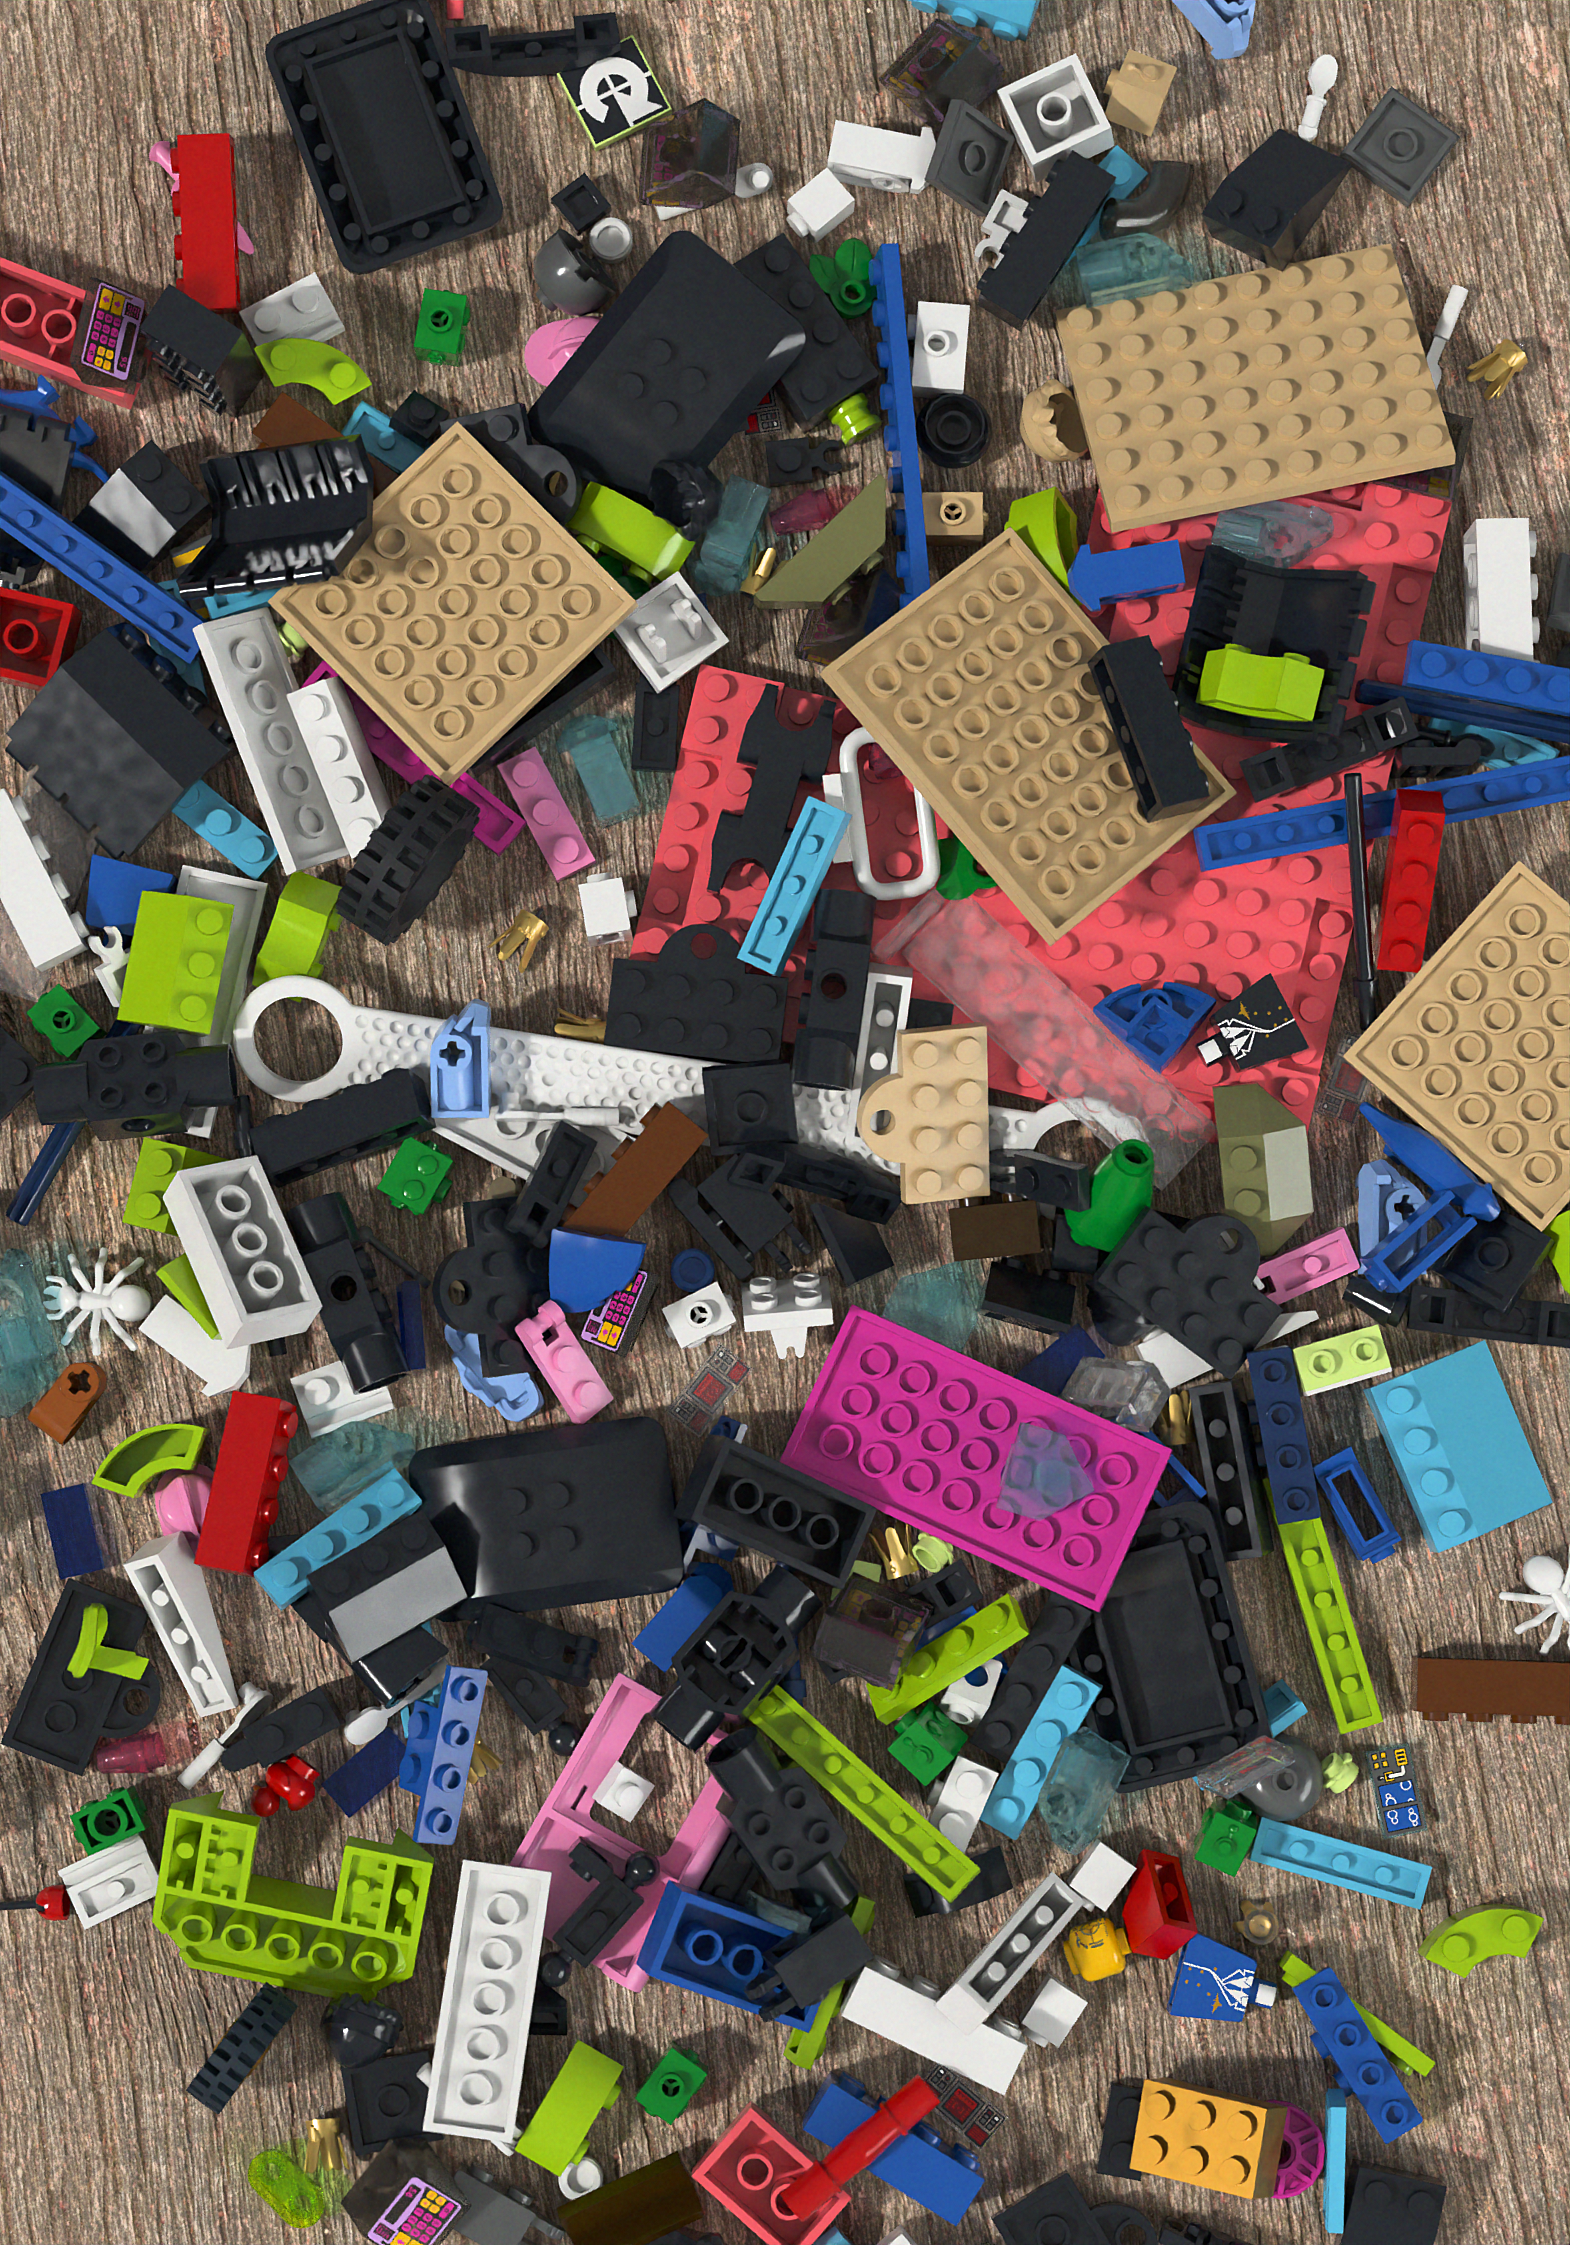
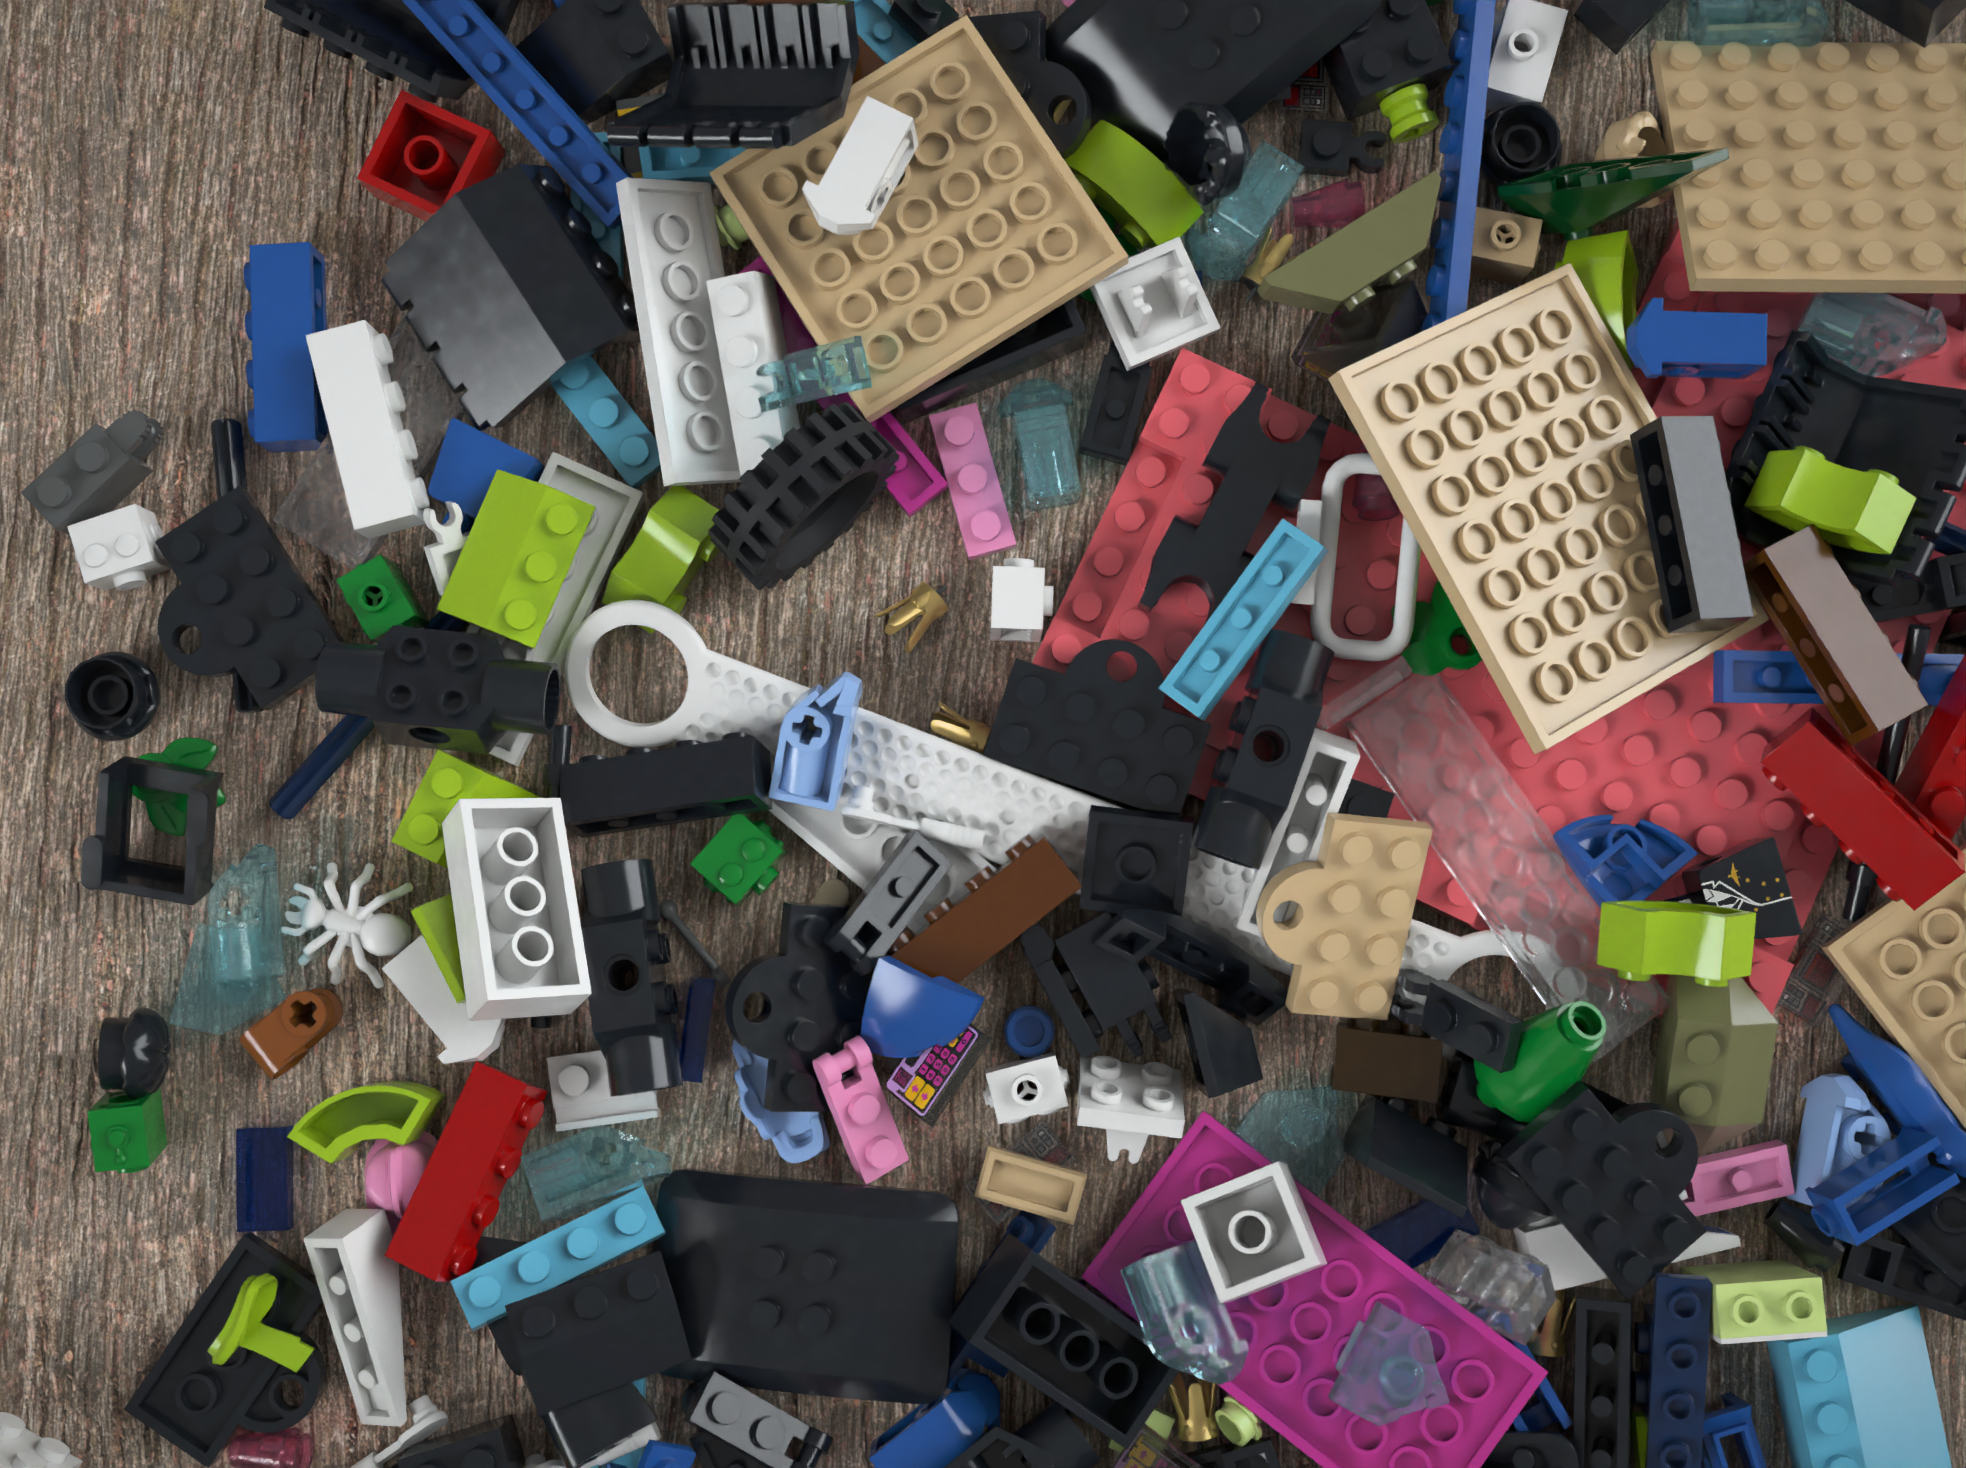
camera: 15 degrees right, 0 degrees up
(396, 756) = (816, 374): none -> clear light blue hinge
(400, 579) = (863, 170): none -> white piece
(719, 1395) = (1030, 1184): none -> tan tile
(865, 1466) = (1177, 1293): none -> clear light blue piece
(908, 1388) = (1253, 1232): none -> white brick
(1018, 459) = (1593, 192): none -> dark green wedge
(1203, 1074) = (1676, 940): none -> lime brick
(1282, 795) = (1833, 635): none -> brick
(1340, 934) = (1862, 810): none -> red brick

